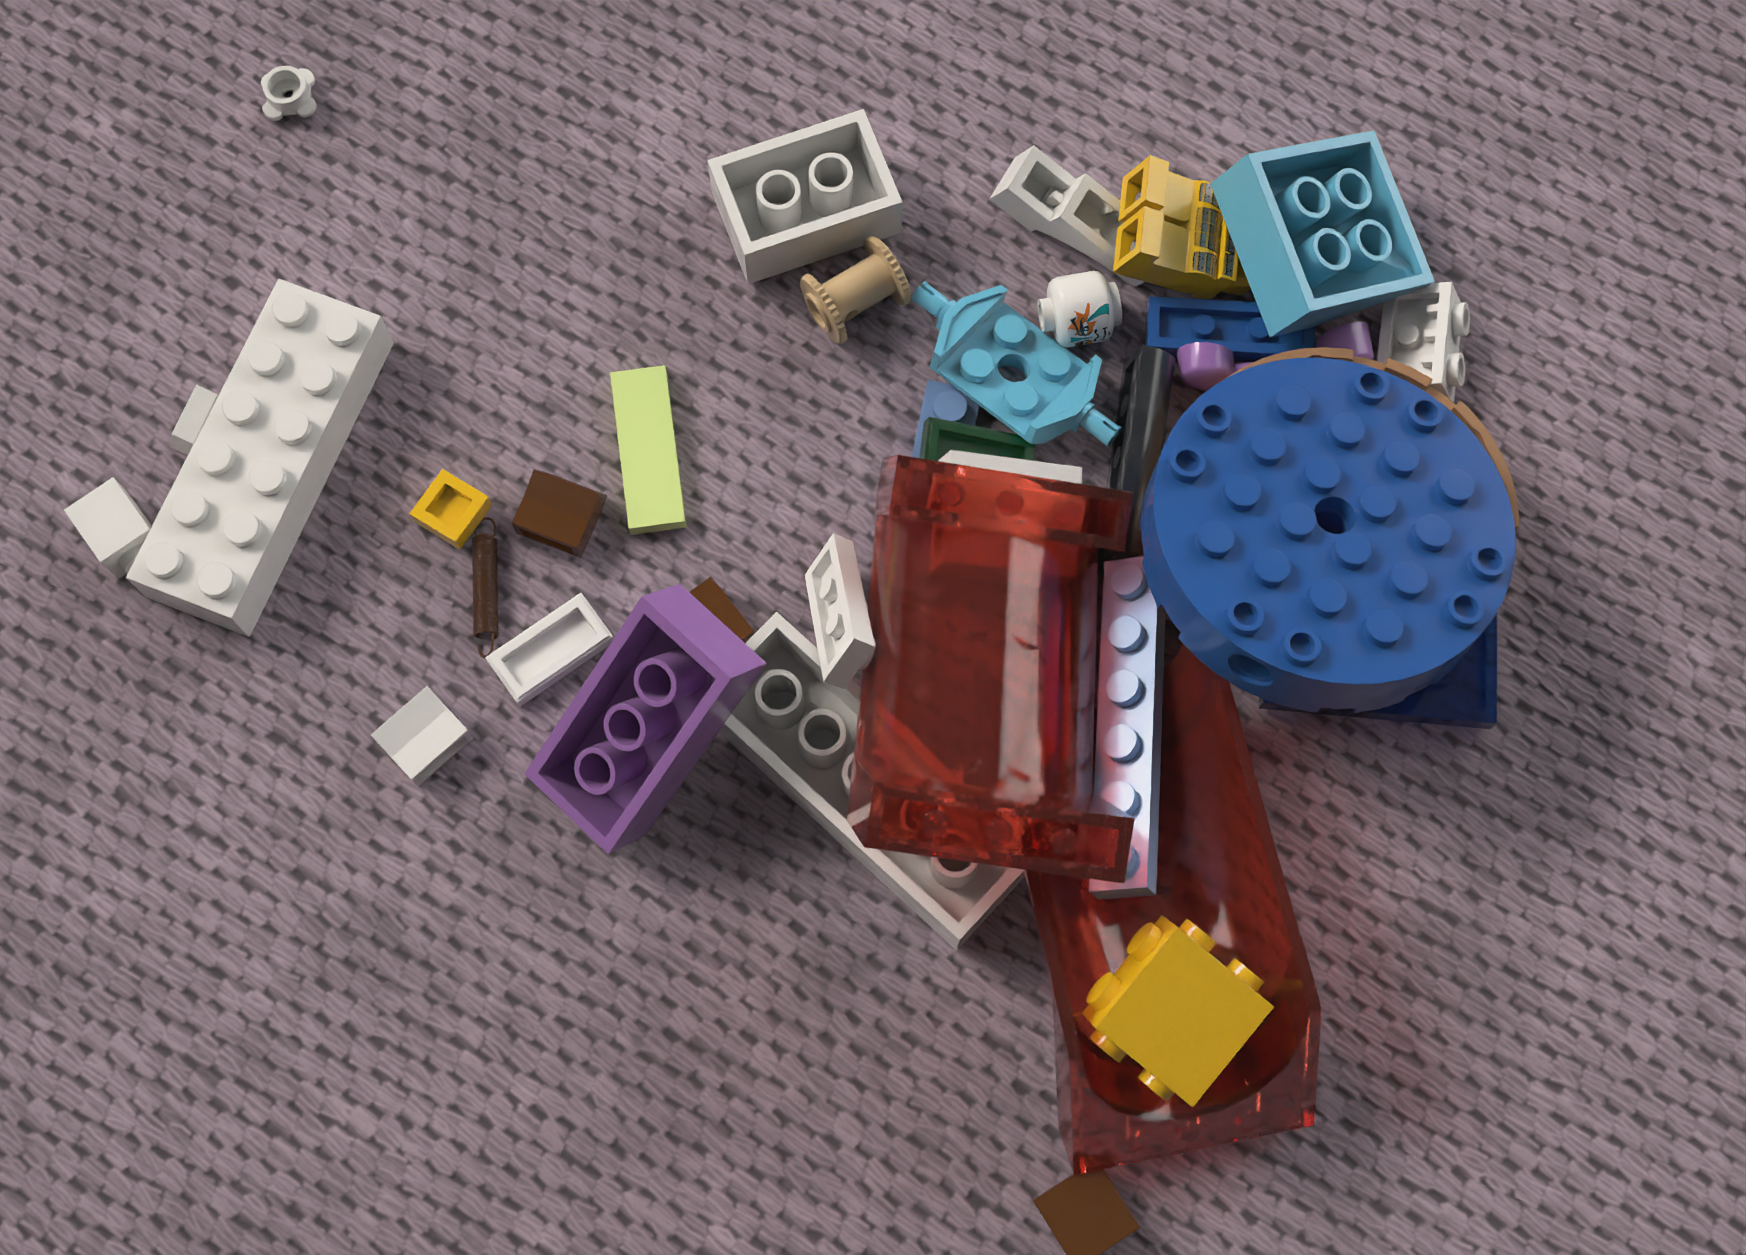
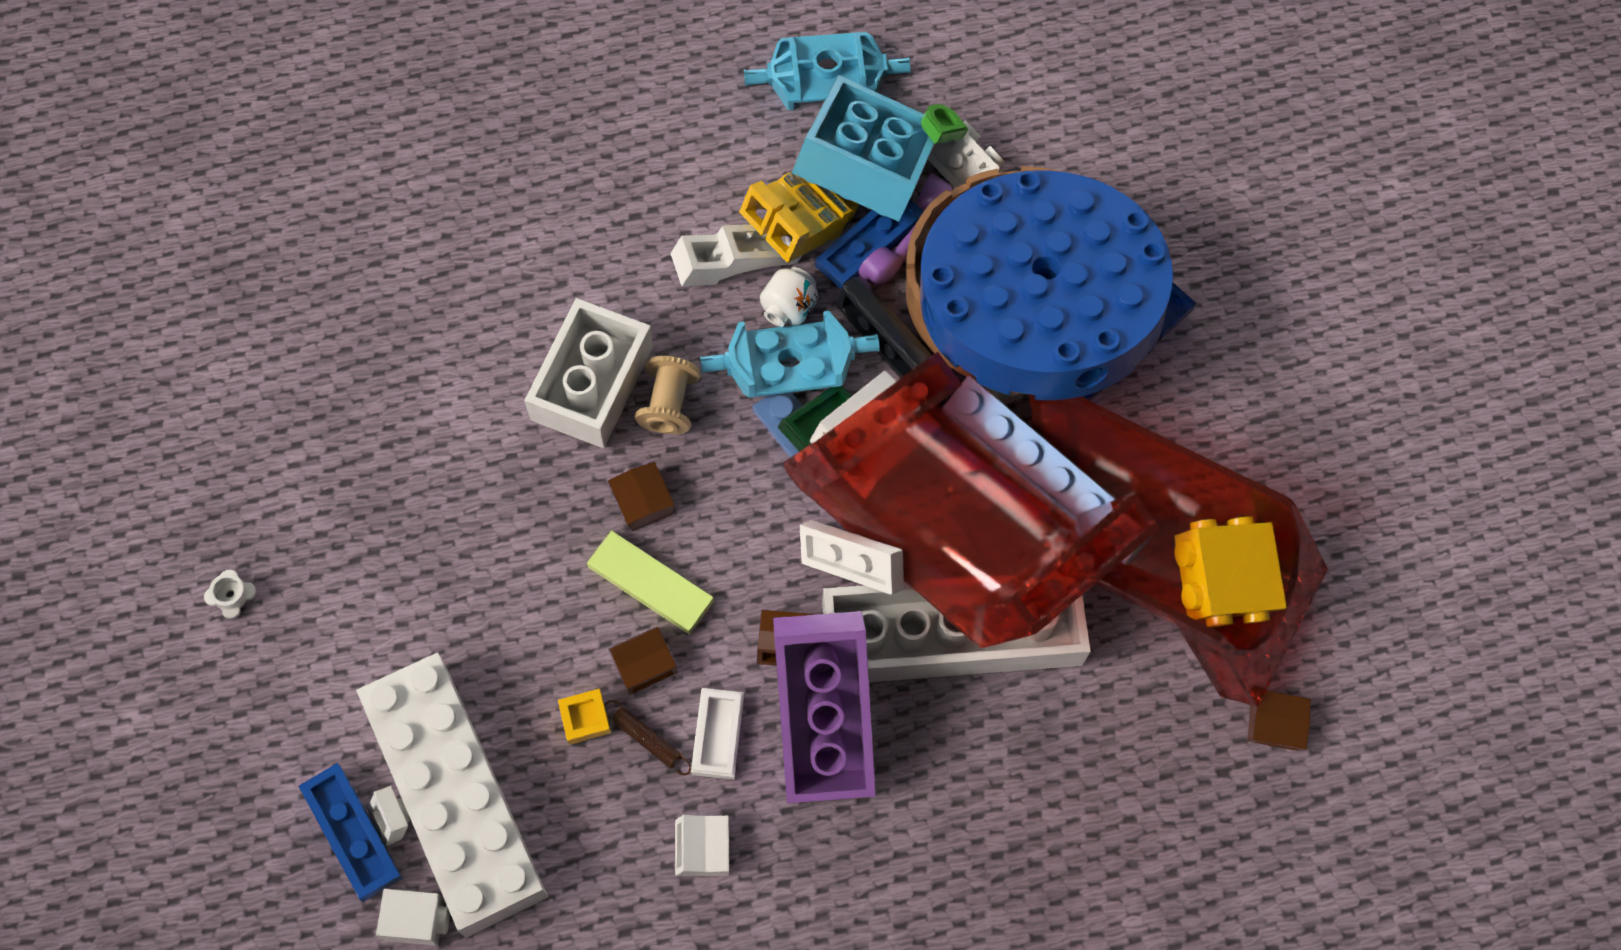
camera: 50 degrees left, 5 degrees down
(152, 403) = (350, 832): none -> blue plate
(726, 360) = (642, 495): none -> reddish brown piece
(1419, 148) = (800, 79): none -> medium azure plate
(1428, 281) = (943, 124): none -> bright green tile

